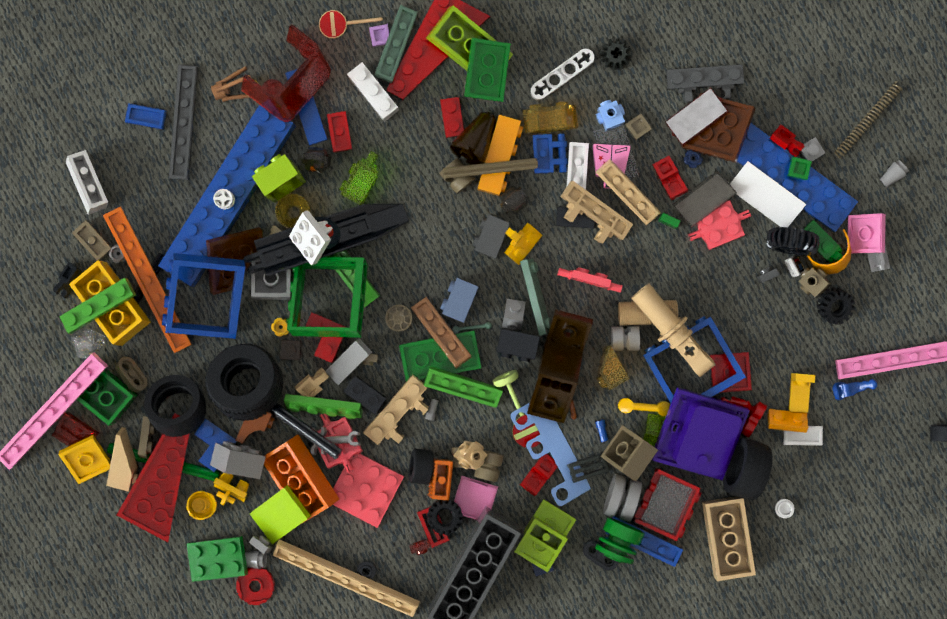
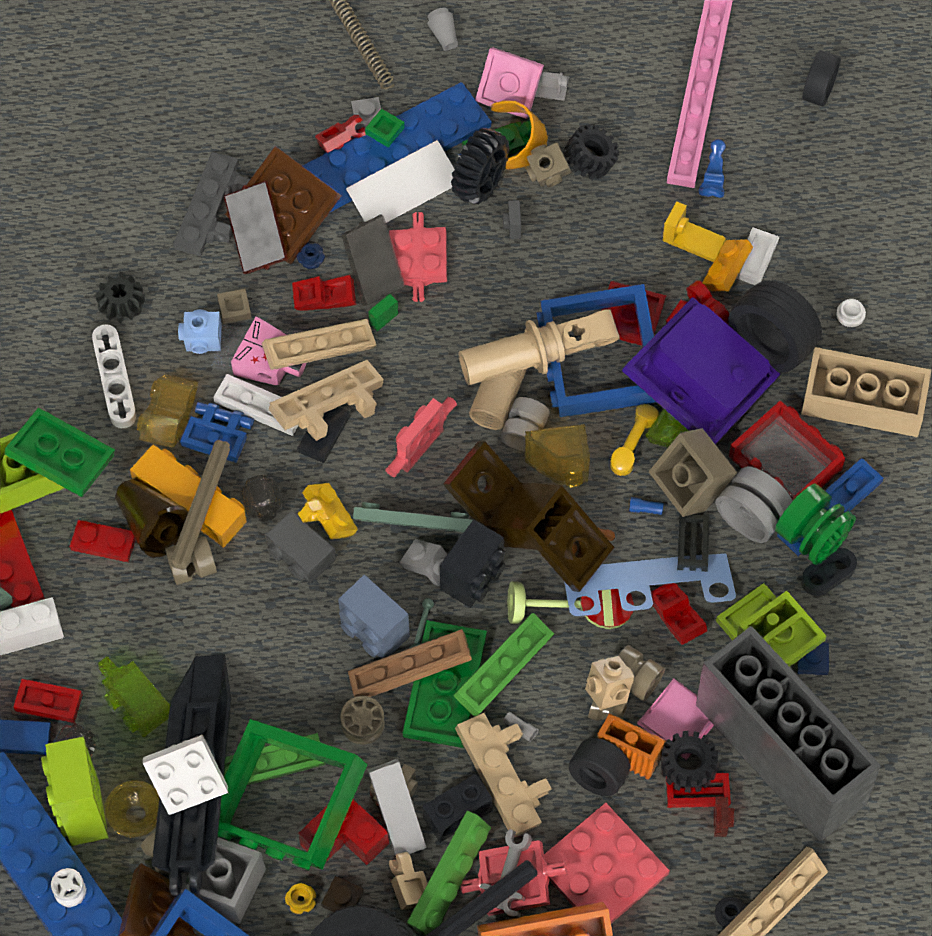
camera: 65 degrees left, 25 degrees down
(794, 266) = (516, 187): white slope -> none

